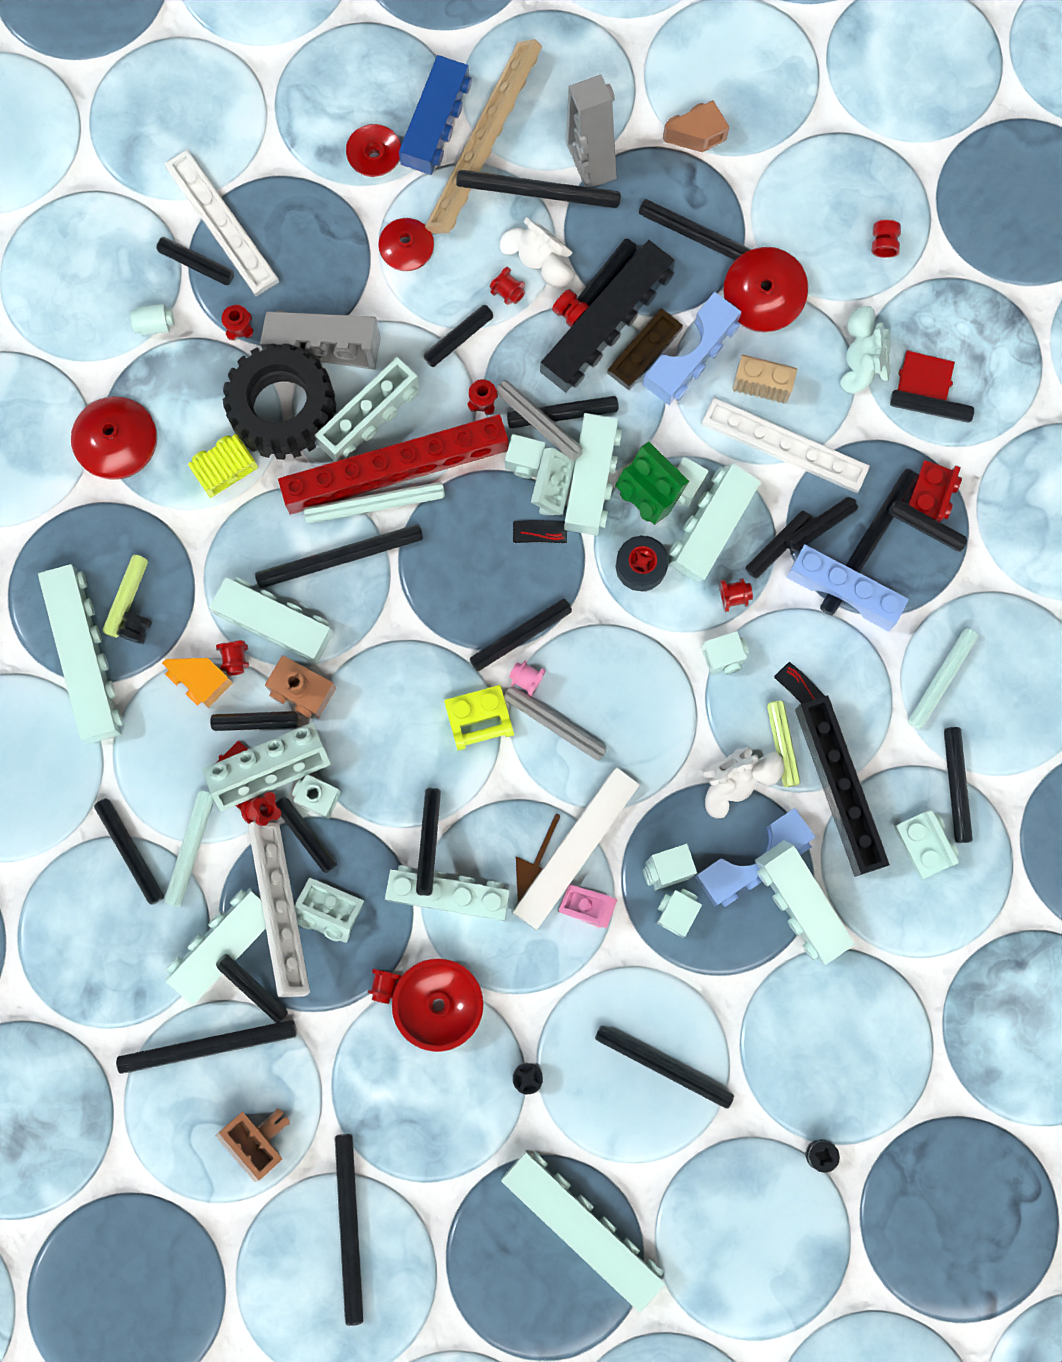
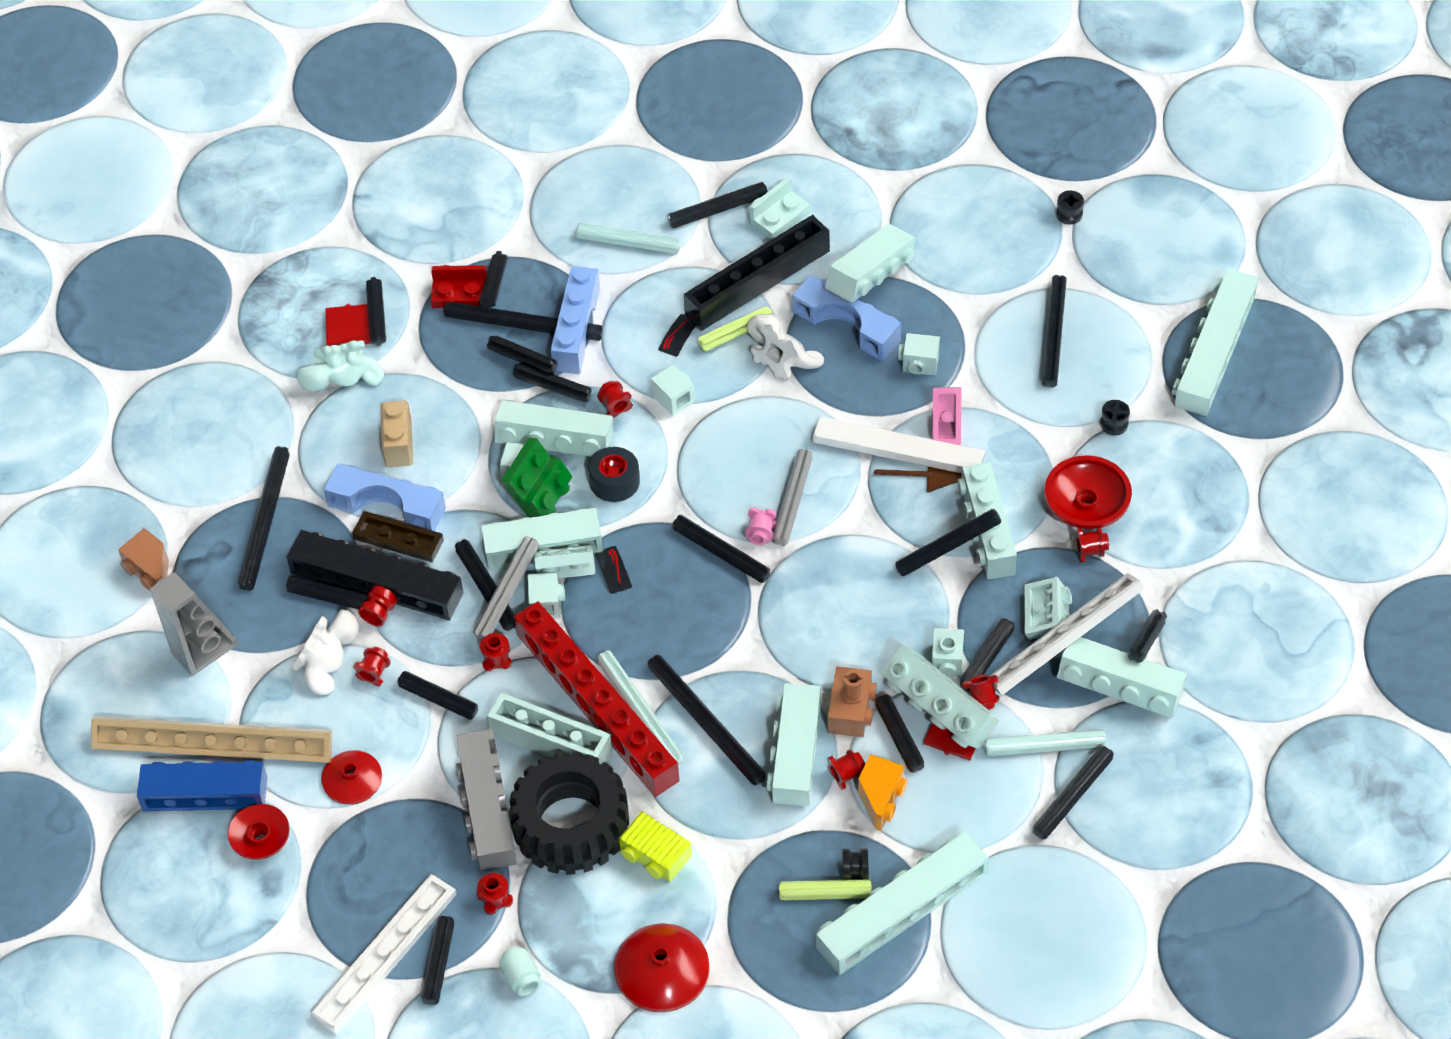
camera: 105 degrees left, 25 degrees down
(206, 1046) = (1218, 664): black axle -> none
(252, 1144) = (1282, 590): nougat brick -> none
(348, 1230) = (1308, 504): black axle -> none
(475, 708) = (807, 563): neon yellow plate -> none
(538, 188) = (259, 669): black axle -> none
(669, 867) = (887, 355): light aqua brick -> none
(768, 309) = (300, 471): red dish -> none
(785, 445) = (453, 408): white tile -> none
(886, 238) = (214, 387): red wheel -> none

